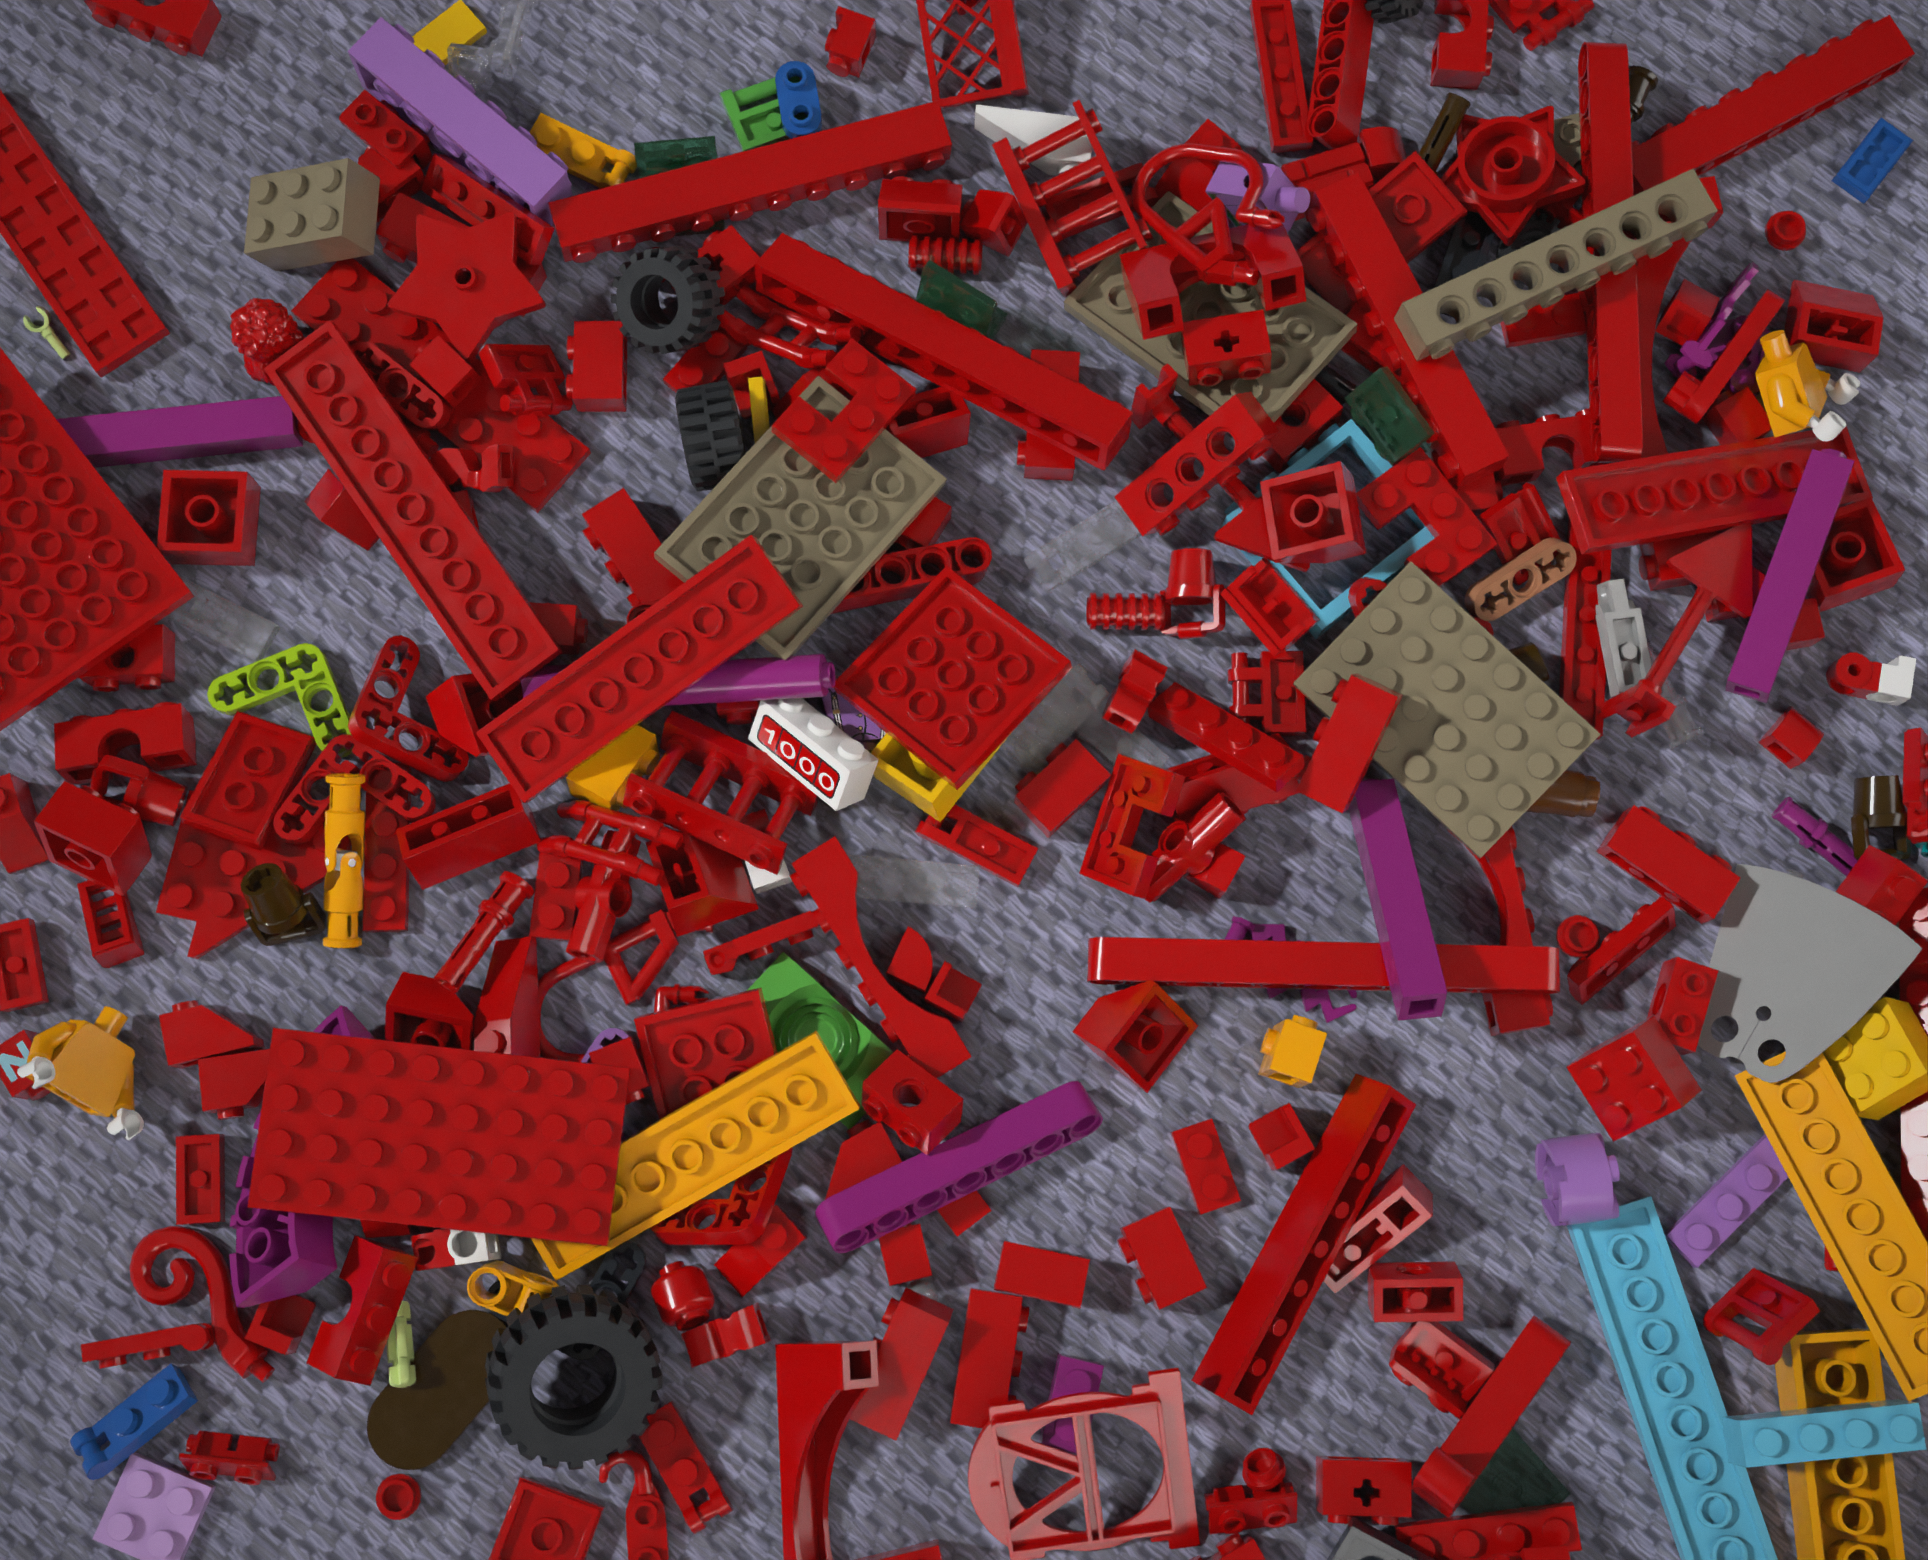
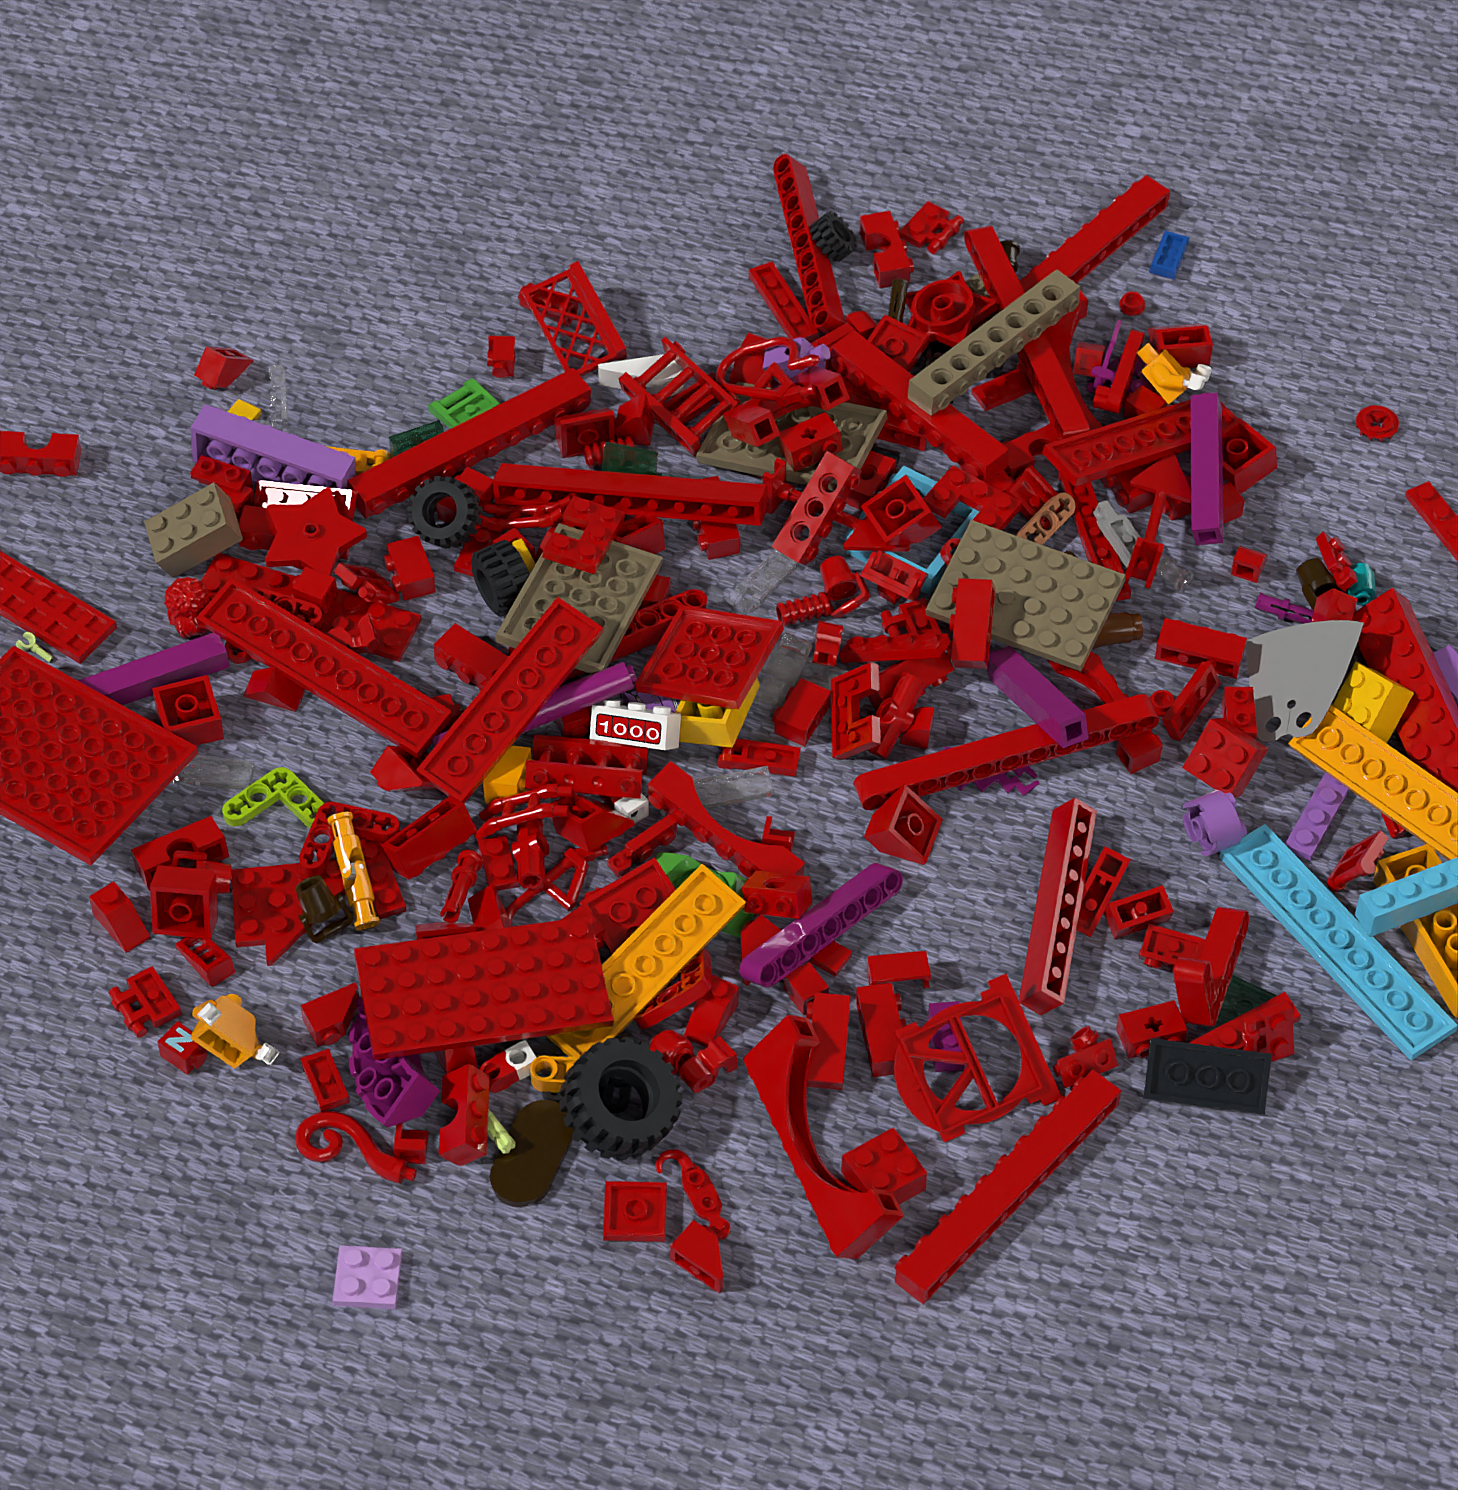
camera: 15 degrees left, 25 degrees down
(133, 1422) = (334, 1226): blue plate -> none
(151, 665) = (176, 809): red brick -> none
(152, 1344) = (328, 1177): red plate -> none
(201, 1033) = (288, 995): red slope -> none
(212, 1457) = (407, 1232): red hinge -> none
(248, 780) = (270, 850): red tile -> none
(386, 714) = (345, 788): red beam -> none
(398, 1496) = (528, 1219): red plate -> none
(683, 1467) = (708, 1149): red plate -> none
(798, 98) = (479, 388): blue plate -> none
(912, 962) = (746, 825): red brick -> none
(1161, 1258) = (971, 944): red brick -> none
(1205, 1166) = (979, 891): red plate -> none
(1281, 1136) = (1022, 859): red panel -> none
(1292, 1051) = (1007, 805): light orange brick -> none
(1389, 416) = (925, 451): clear green bracket -> none
(1873, 681) = (1284, 519): leg -> none

